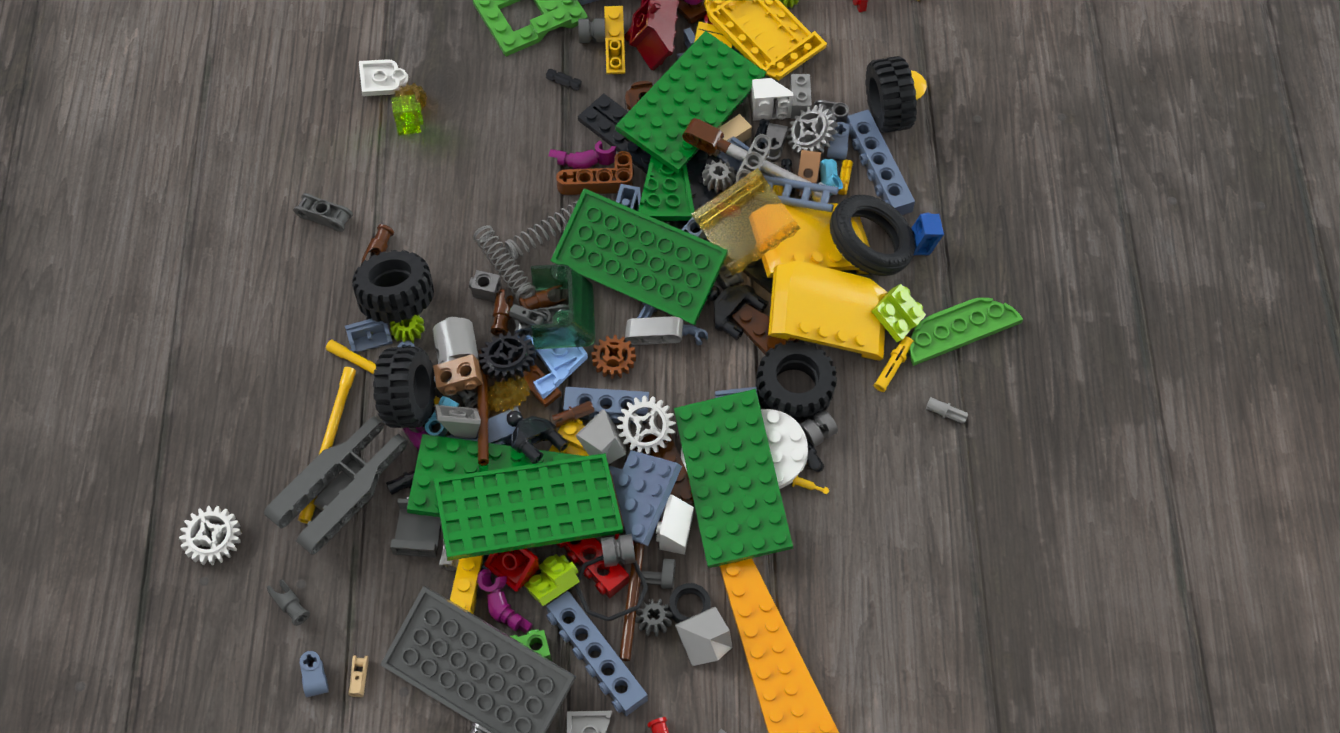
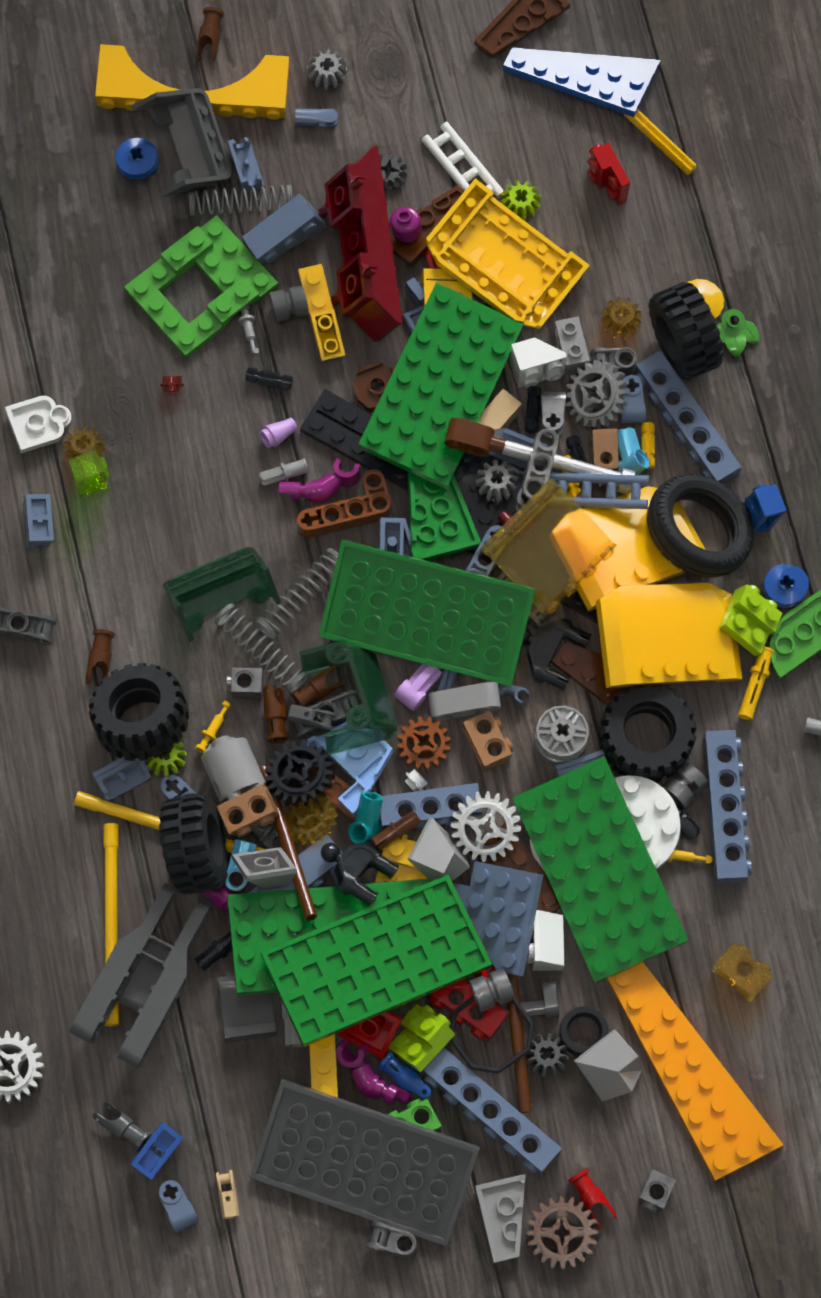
camera: 15 degrees left, 10 degrees up
(308, 625) = (156, 1151): none -> blue brick
(359, 142) = (38, 520): none -> sand blue hinge
(454, 311) = (209, 734): none -> yellow piece
(489, 69) = (172, 383): none -> clear red plate
(494, 210) = (218, 585): none -> clear green windscreen
(532, 610) = (406, 1078): none -> blue piece
(552, 401) = (367, 818): none -> teal piece
(556, 144) = (283, 472): none -> light grey axle
(557, 38) = (247, 323): none -> light grey piece
(558, 116) = (277, 432): none -> lavender cone
(600, 382) = (415, 780): none -> white plate
(616, 316) = (413, 691): none -> lavender piece
(661, 365) = (482, 742): none -> medium nougat brick
(725, 368) = (561, 749): none -> light grey wheel
(836, 596) = (749, 985): none -> clear yellow brick
(843, 84) = (613, 322): none -> clear yellow gear
(846, 502) = (724, 869): none -> sand blue brick
(931, 112) = (737, 335): none -> bright green plate
(933, 295) = (793, 577): none -> blue piece

